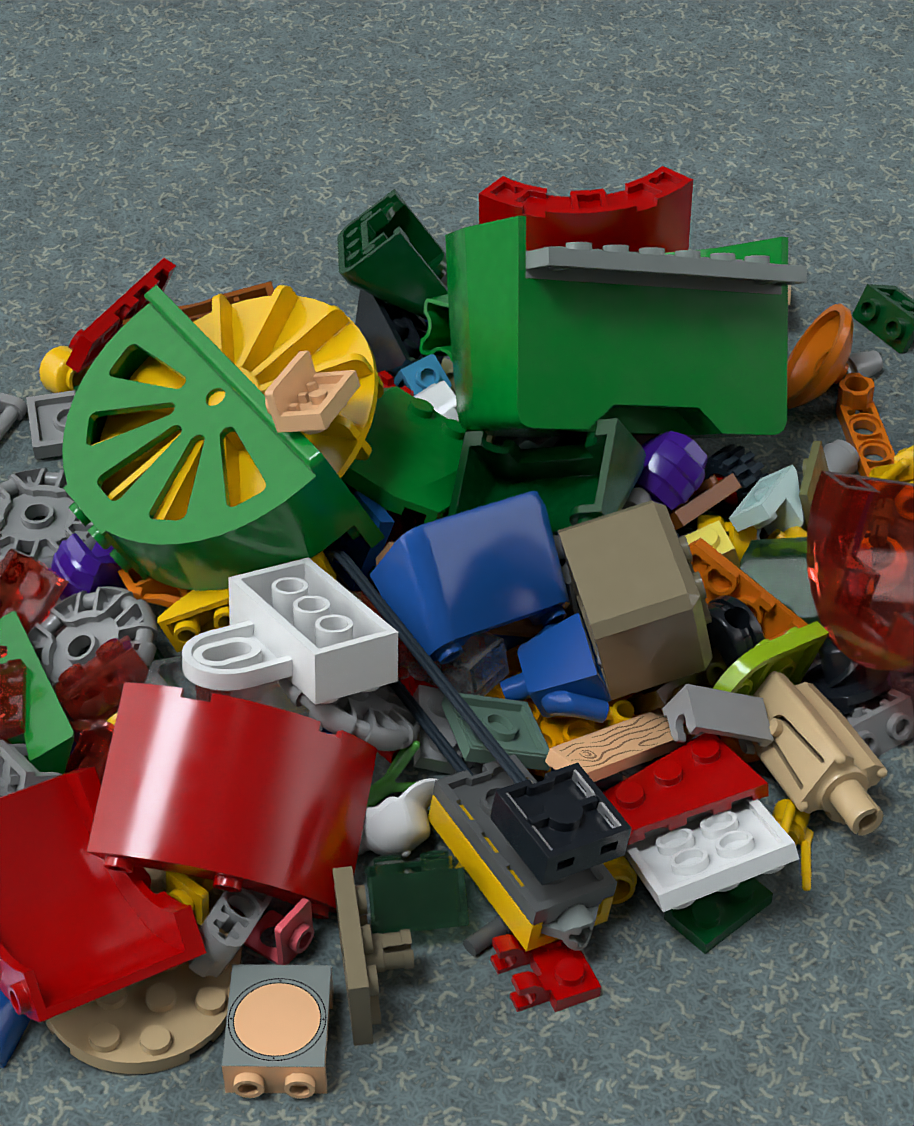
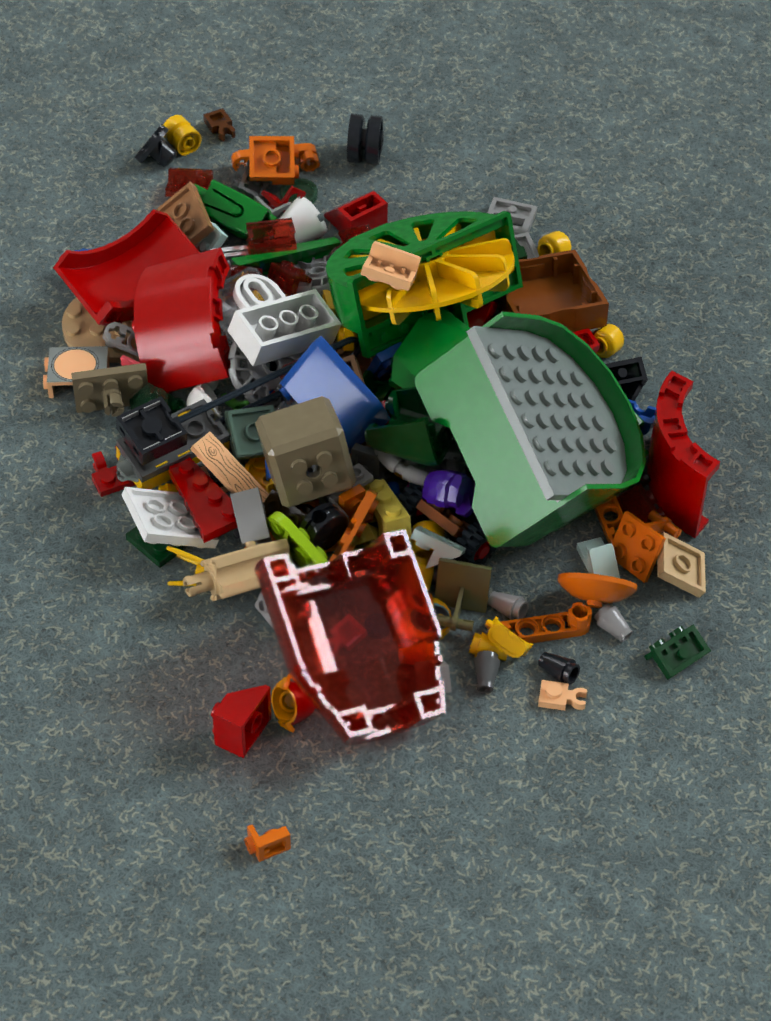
camera: 85 degrees right, 5 degrees up
(90, 342) = (593, 256): red wing -> none
(392, 255) = (645, 361): dark green windscreen -> none

